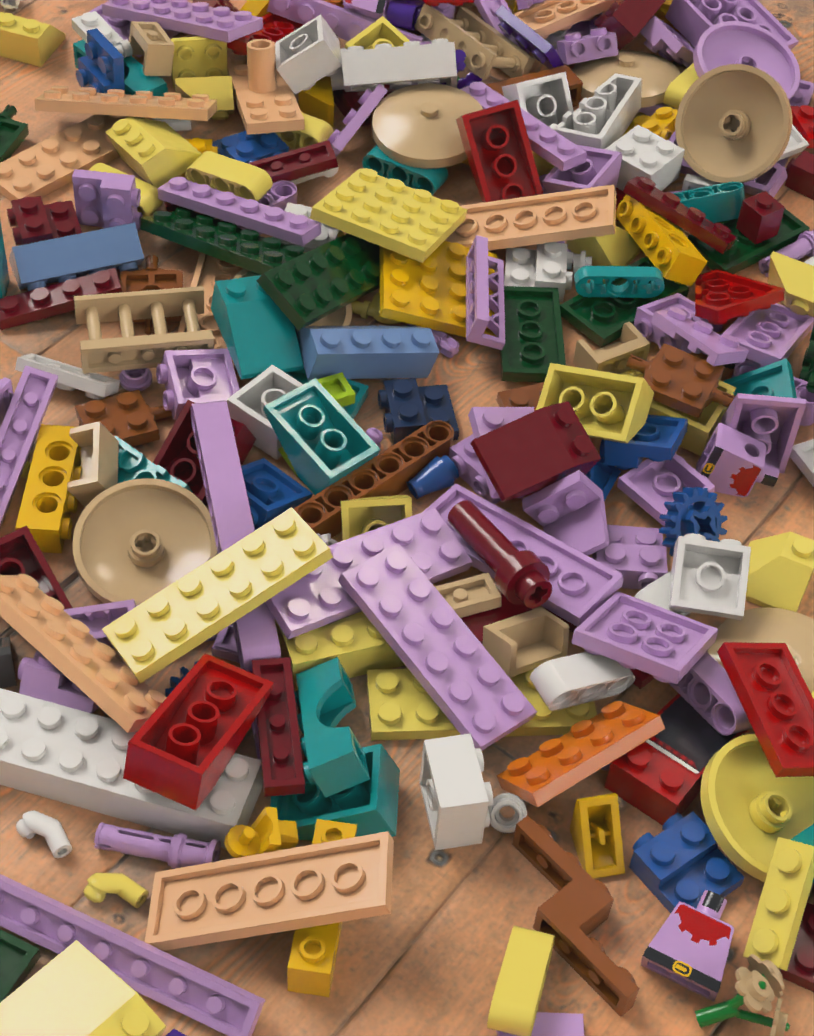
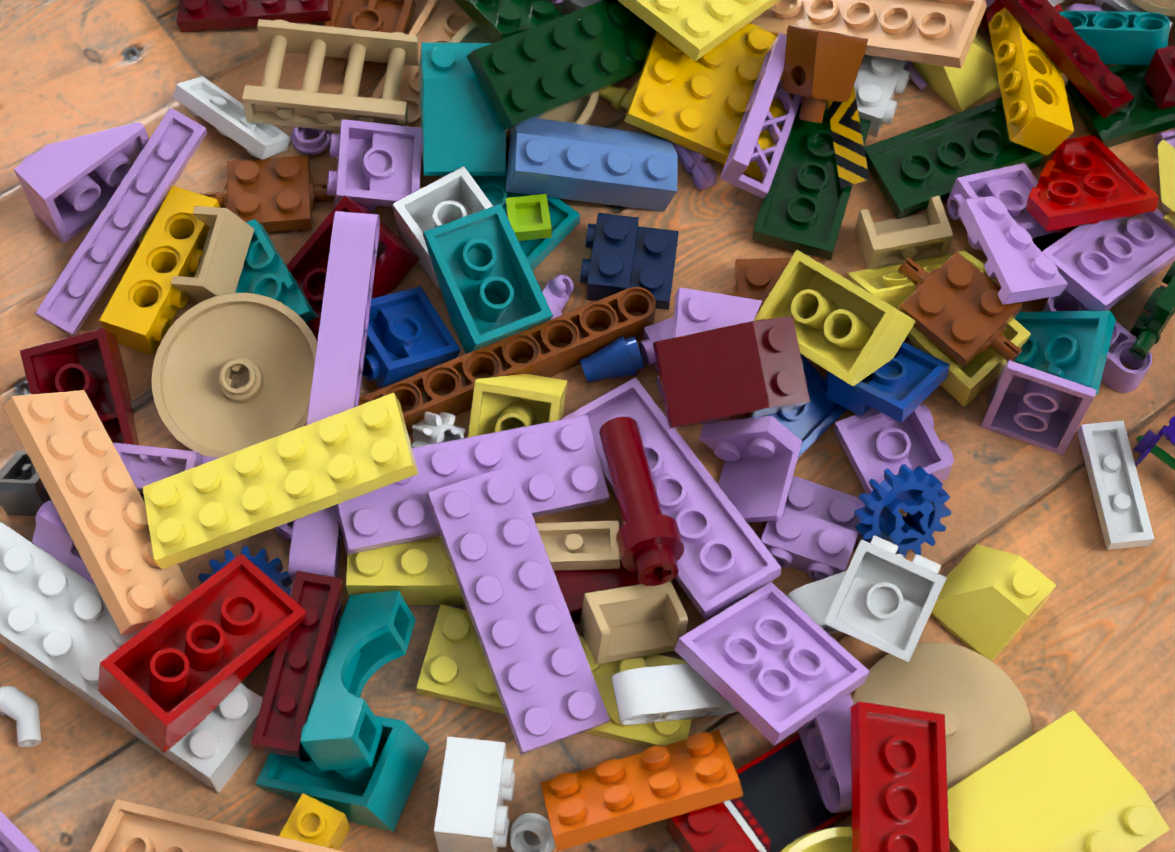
camera: 20 degrees right, 15 degrees up
(115, 883) = (70, 799): light yellow arm -> none
(176, 850) = (148, 779): lavender pin -> none
(264, 835) = (233, 800): yellow hips -> none
(513, 252) = (820, 68): none -> dark orange torso
(541, 290) = (848, 141): none -> sticker
(581, 260) = (917, 92): white plate -> none
(640, 274) = (971, 139): teal beam -> none
(735, 462) = (994, 435): lavender torso -> none

